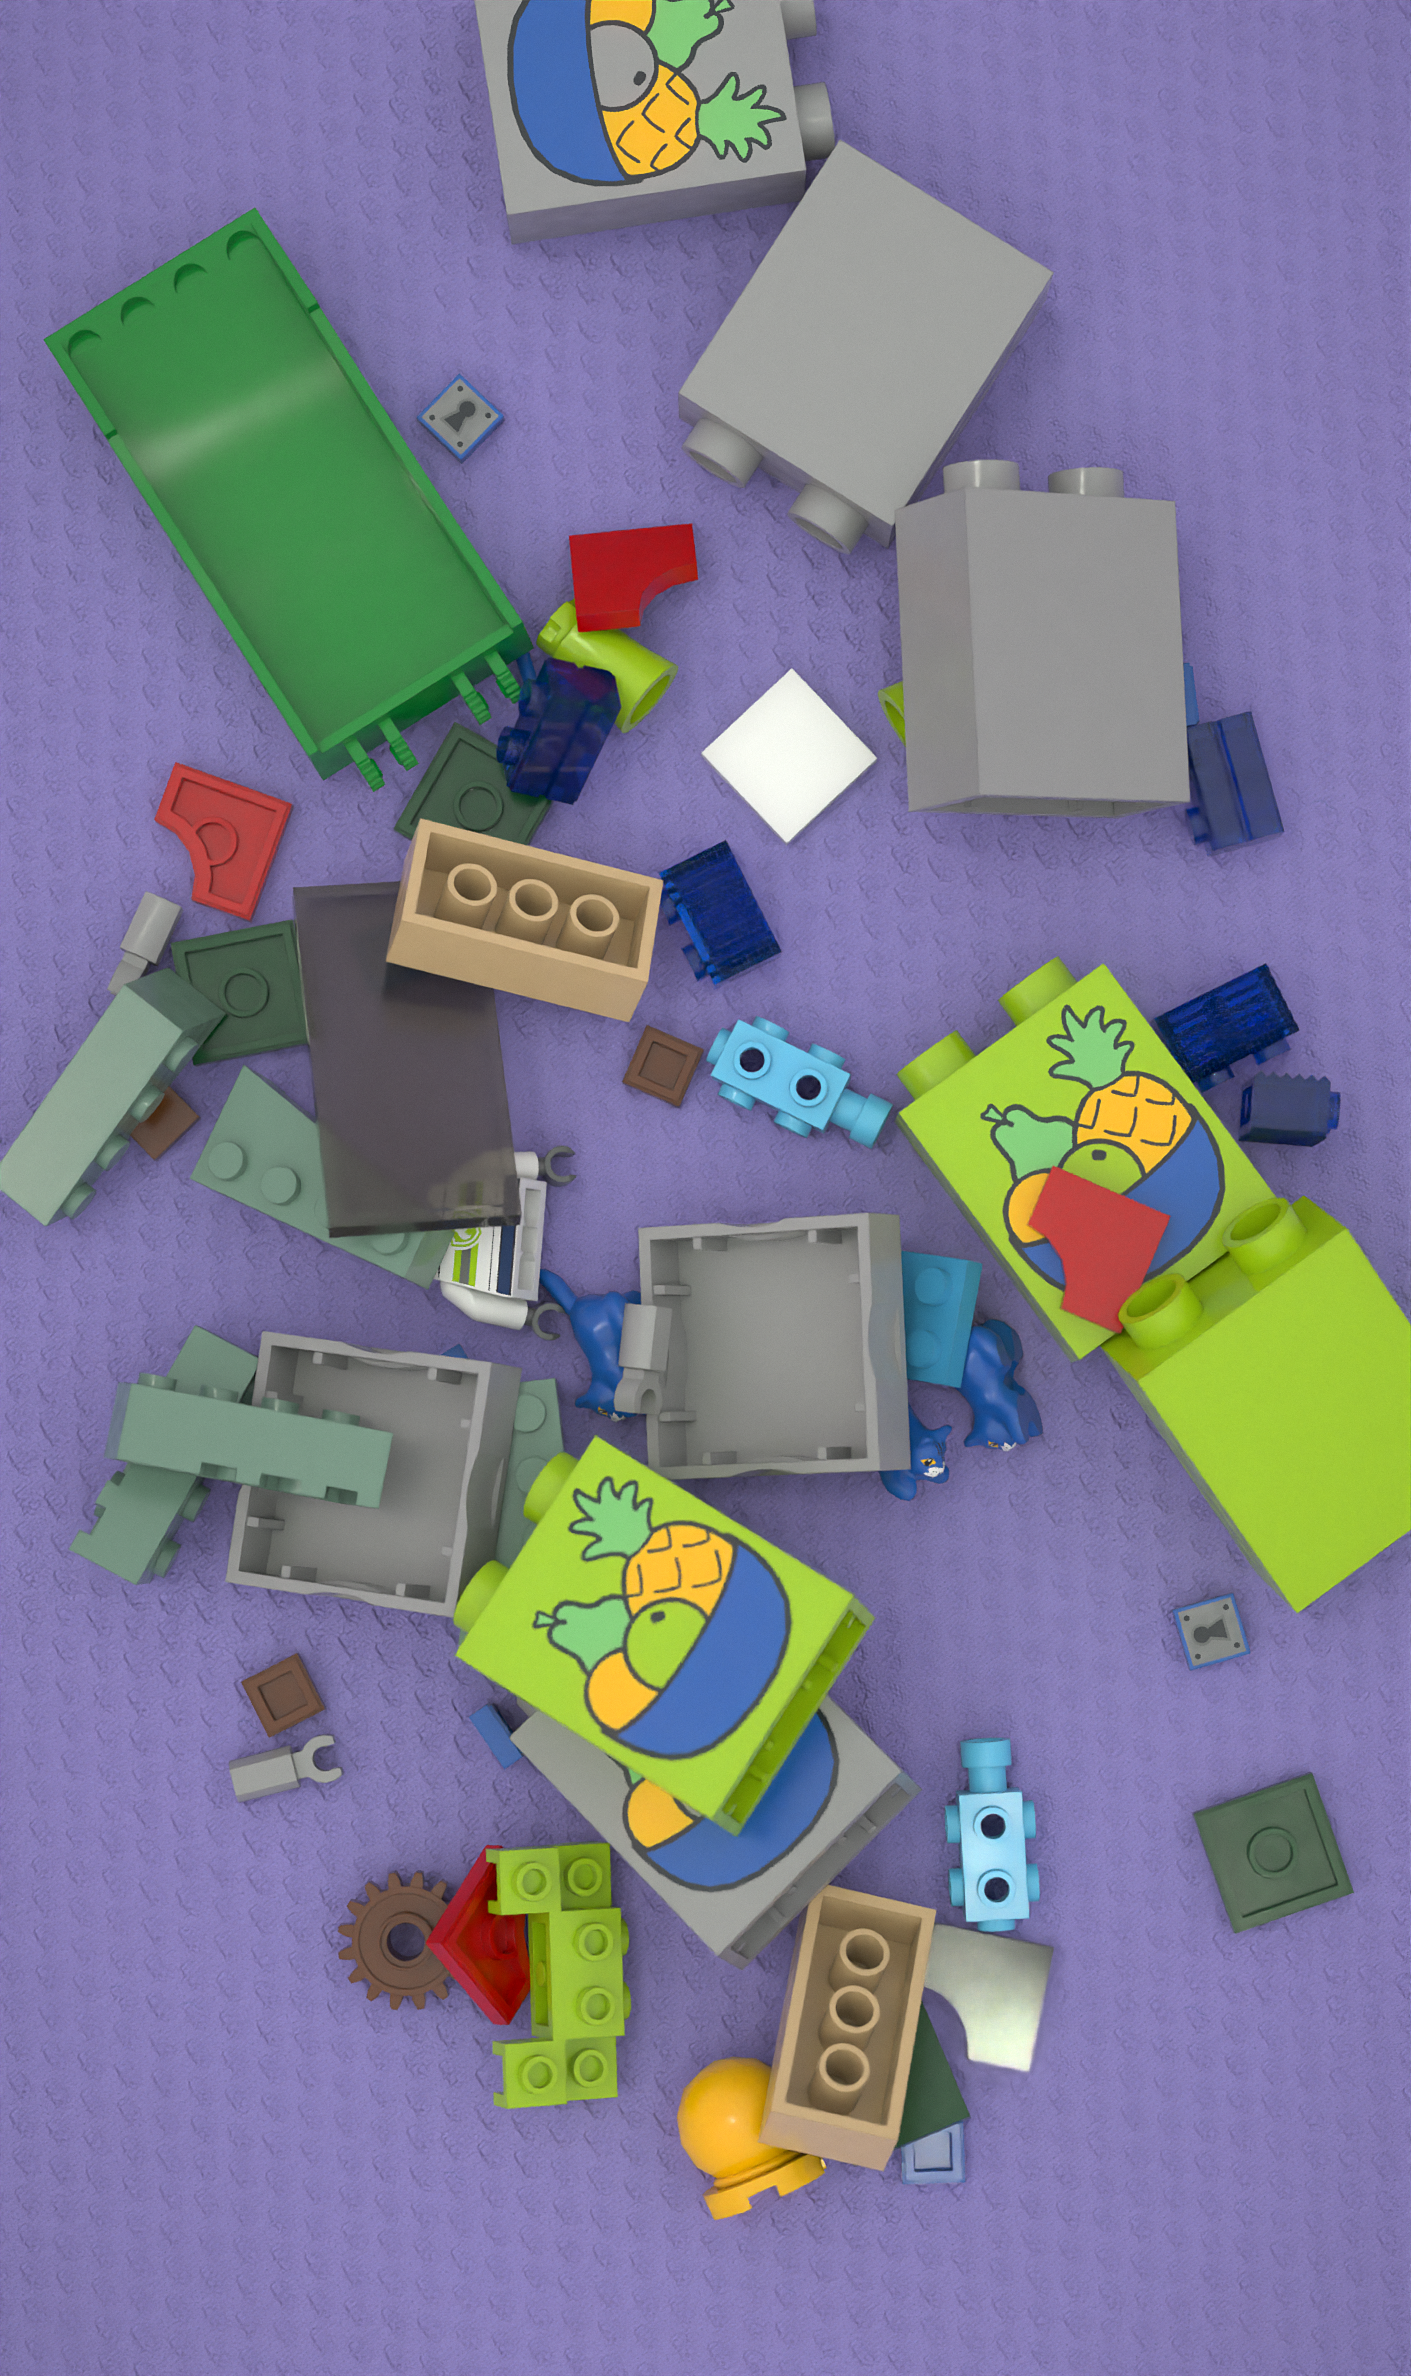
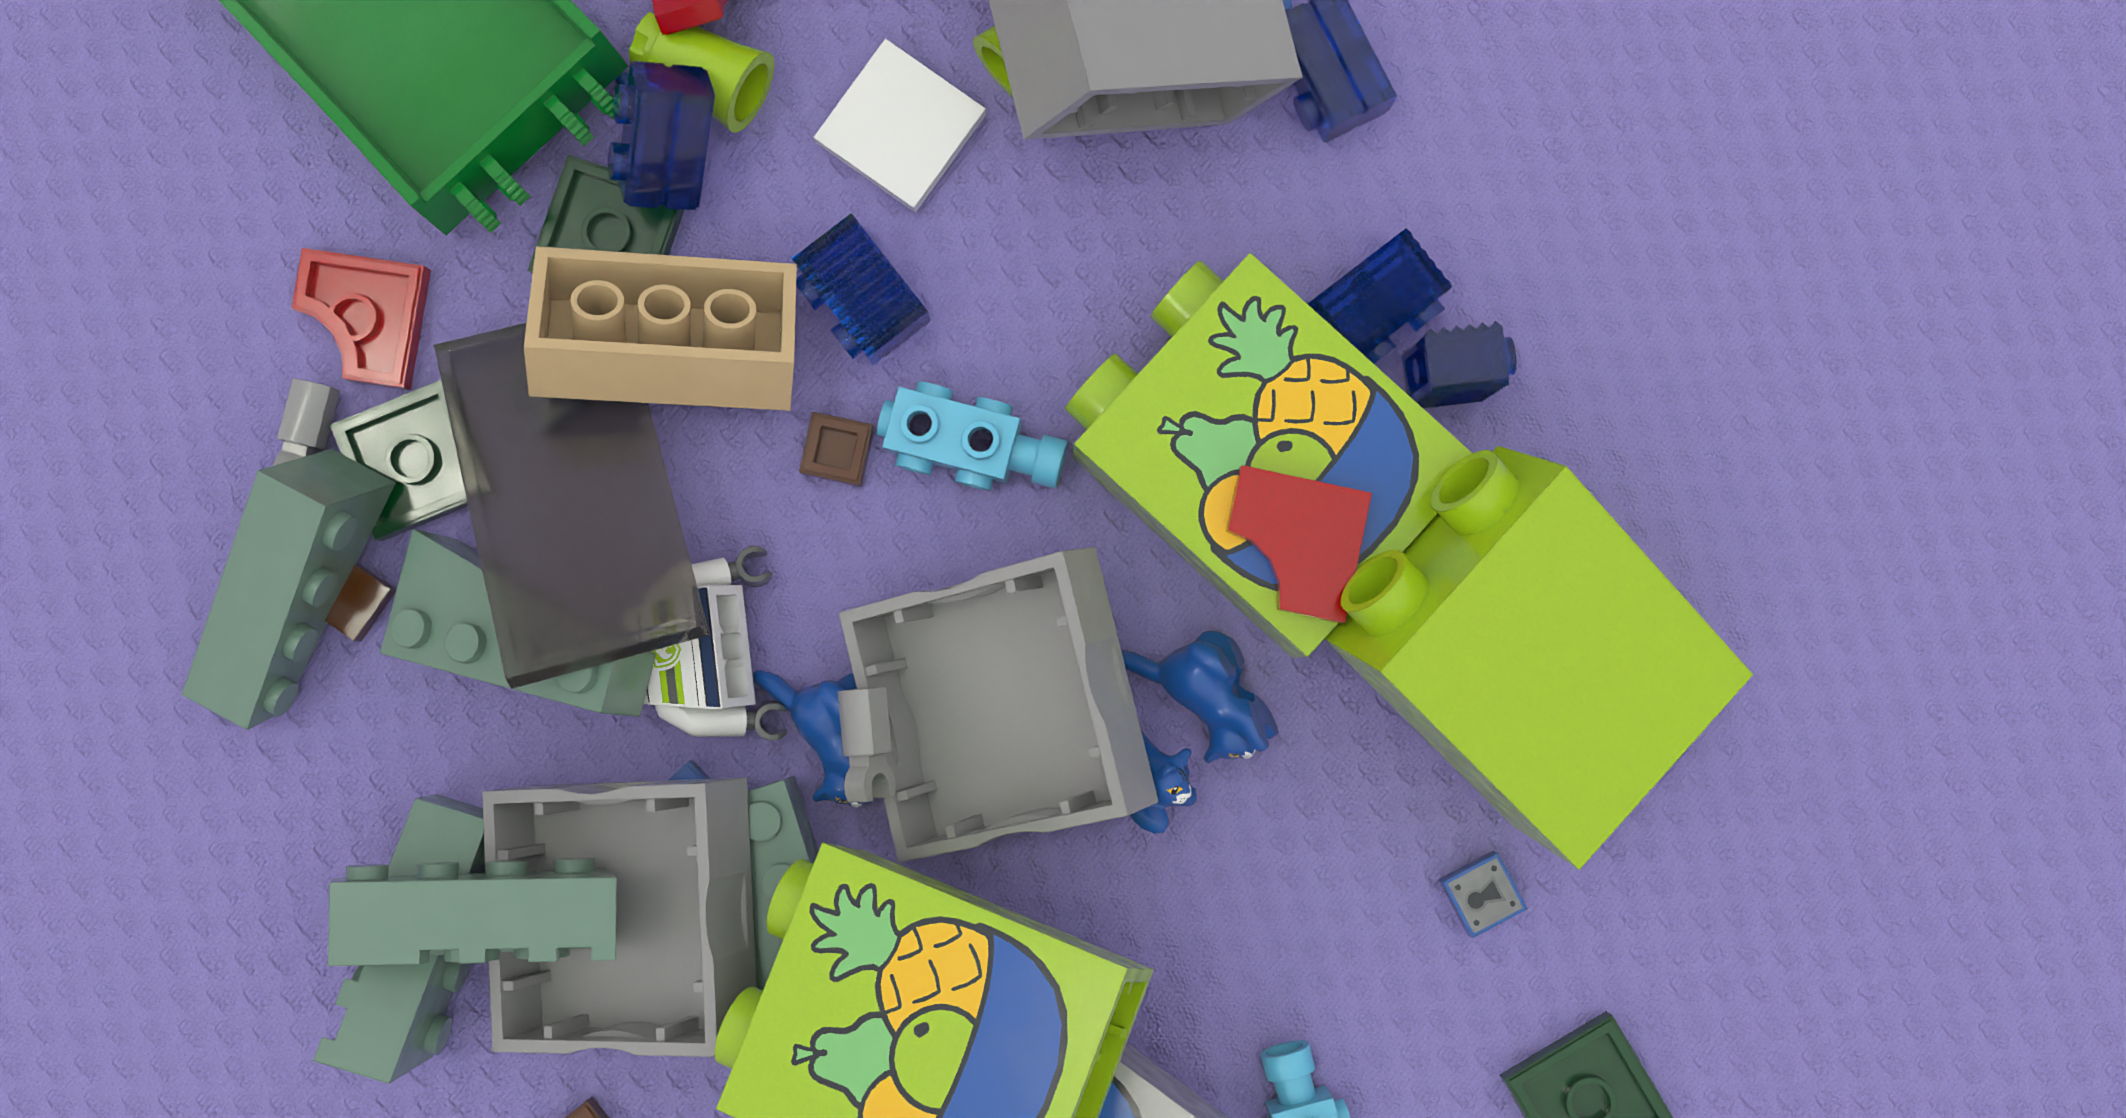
camera: 15 degrees left, 0 degrees up
(938, 1315) = (1154, 640): dark azure plate -> none

